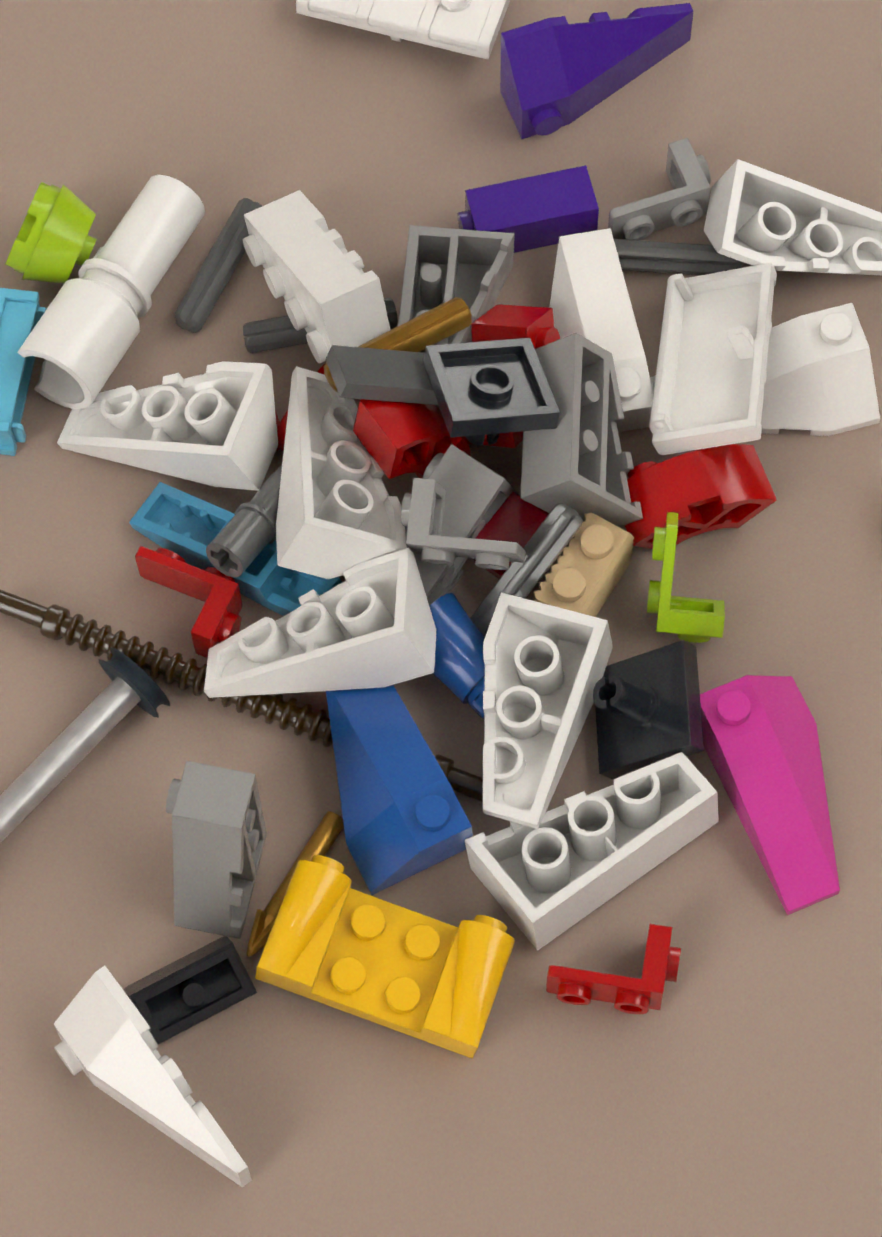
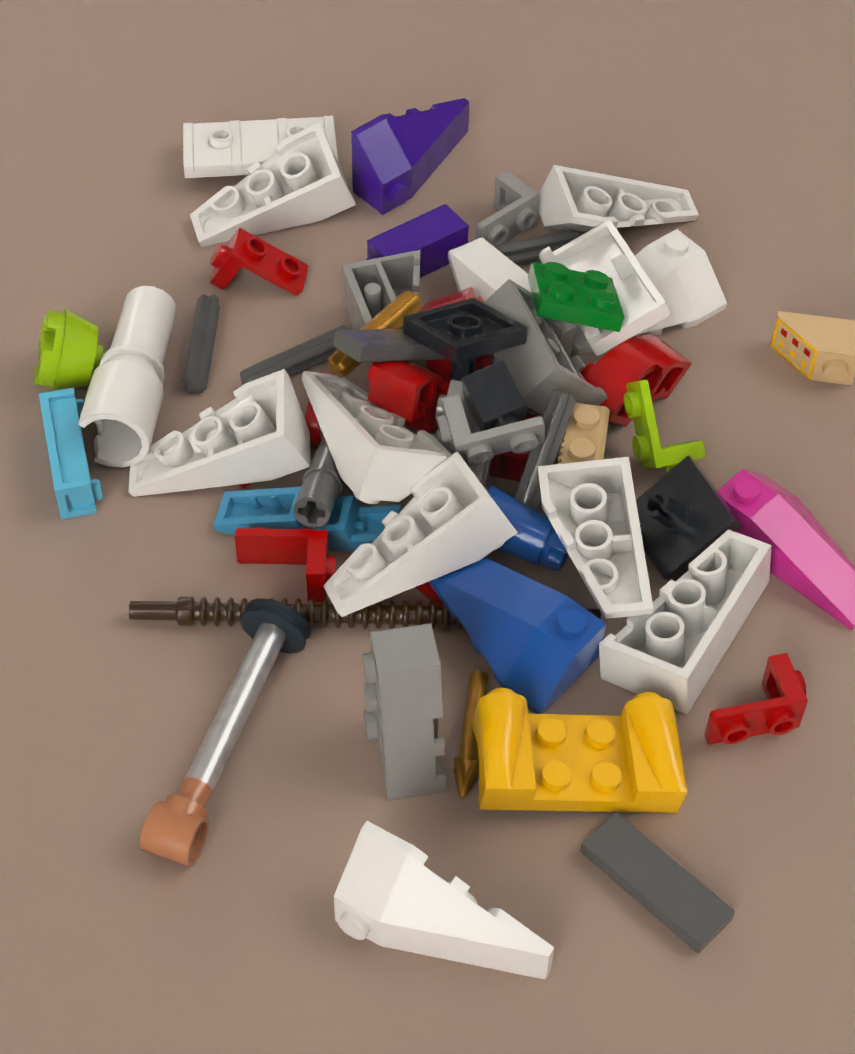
camera: 25 degrees left, 15 degrees down
(191, 989) = (439, 828): black slope -> none
(315, 275) = (289, 314): white wedge -> none
(331, 173) = (259, 258): none -> red bracket
(405, 1129) = (657, 882): none -> dark grey tile
(410, 74) = (286, 191): none -> white wedge
(479, 497) = (493, 397): none -> black brick
(656, 375) = (575, 296): none -> green plate

